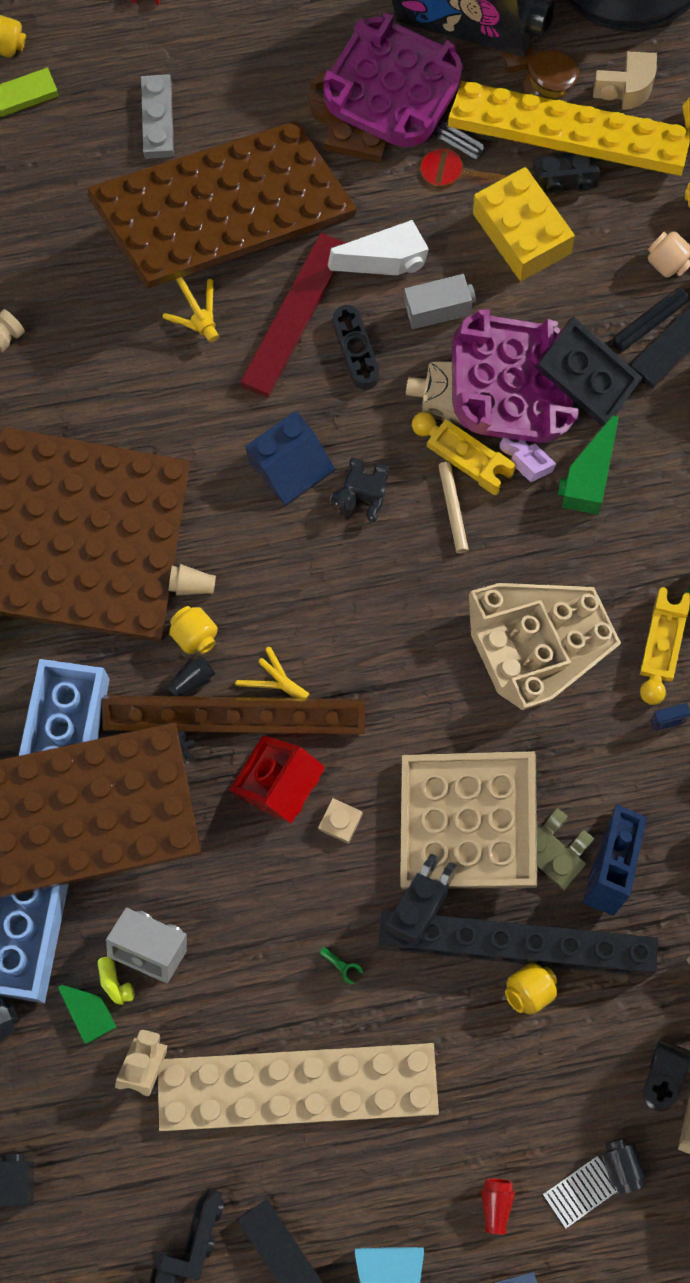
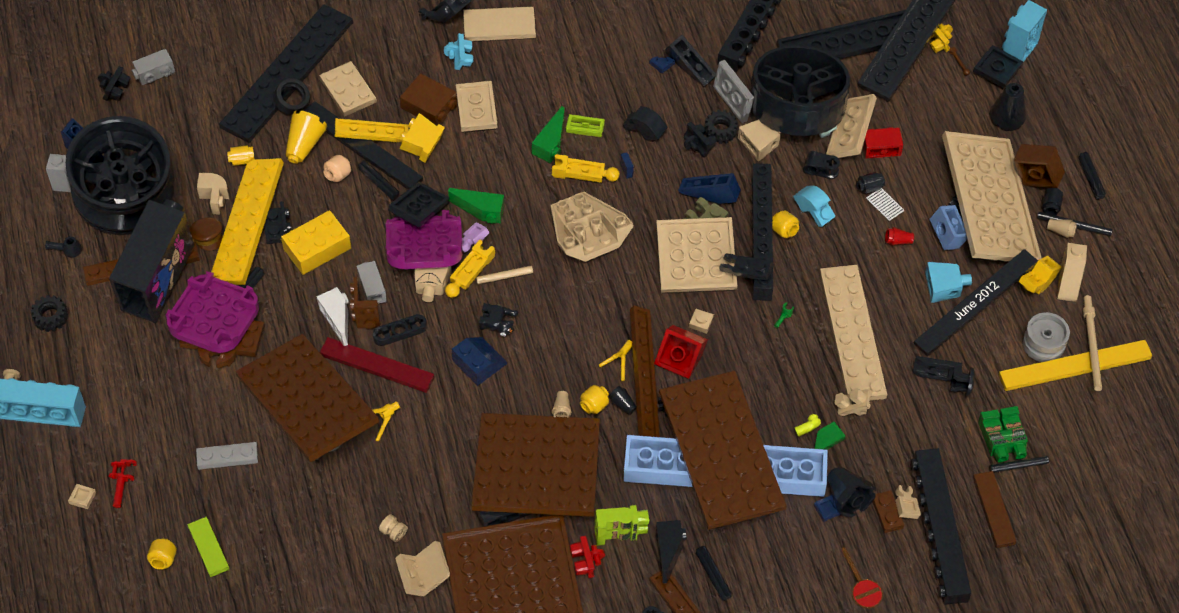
camera: 100 degrees left, 15 degrees down
(146, 944) = (786, 405): light grey brick -> none
(390, 278) = (363, 312): none -> reddish brown bracket
(445, 167) = (271, 291): piece -> none
(571, 1048) = (816, 201): none -> medium azure brick

